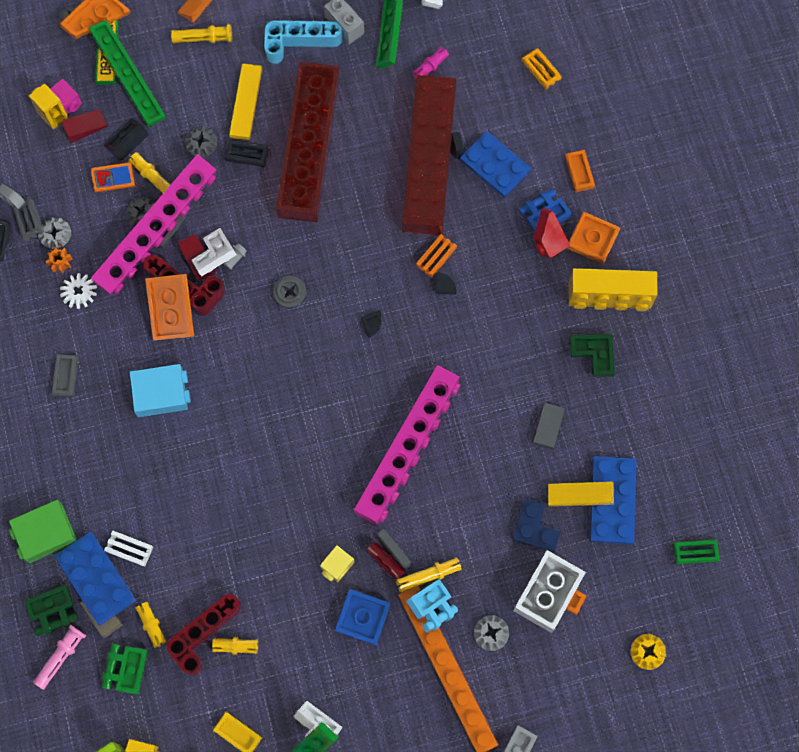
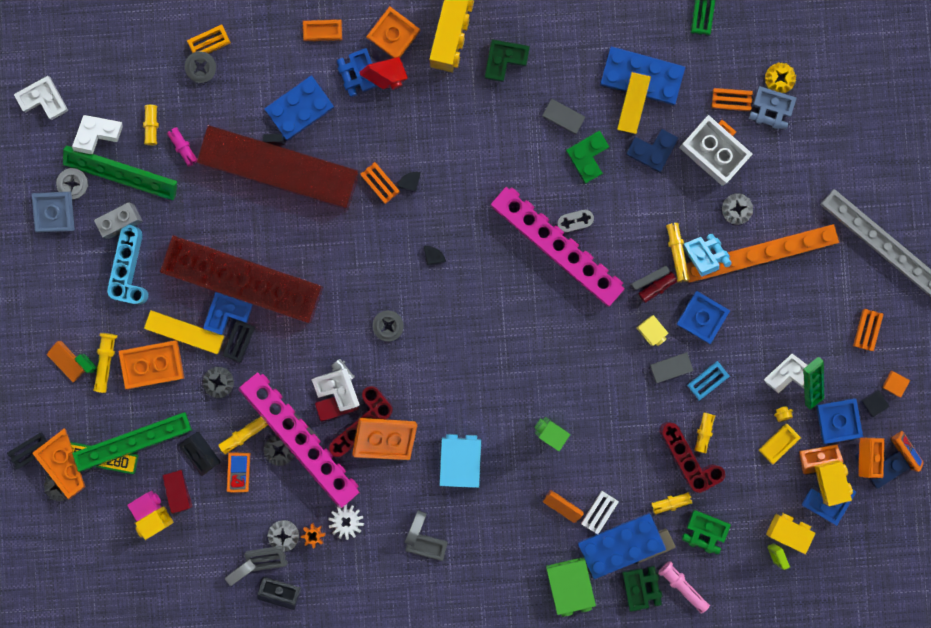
camera: 75 degrees left, 15 degrees up
(81, 357) = (415, 528): none -> beam
(129, 508) = (563, 506): none -> orange slope
(198, 17) = (86, 364): none -> green tile
(203, 468) = (551, 433): none -> bright green brick
(207, 77) = (151, 364): none -> orange plate
(271, 730) = (783, 414): none -> yellow plate
(273, 129) = (223, 308): none -> blue plate
(301, 594) = (671, 367): none -> dark grey tile
(308, 651) = (695, 390): none -> dark azure tile
(444, 457) = (576, 225): none -> light grey beam
(445, 31) = (150, 125): none -> yellow pin
(513, 55) = (200, 76): none -> dark grey gear
(513, 454) = (583, 153): none -> green plate
(608, 583) = (748, 100): none -> orange tile
(619, 648) = (773, 102): none -> sand blue plate

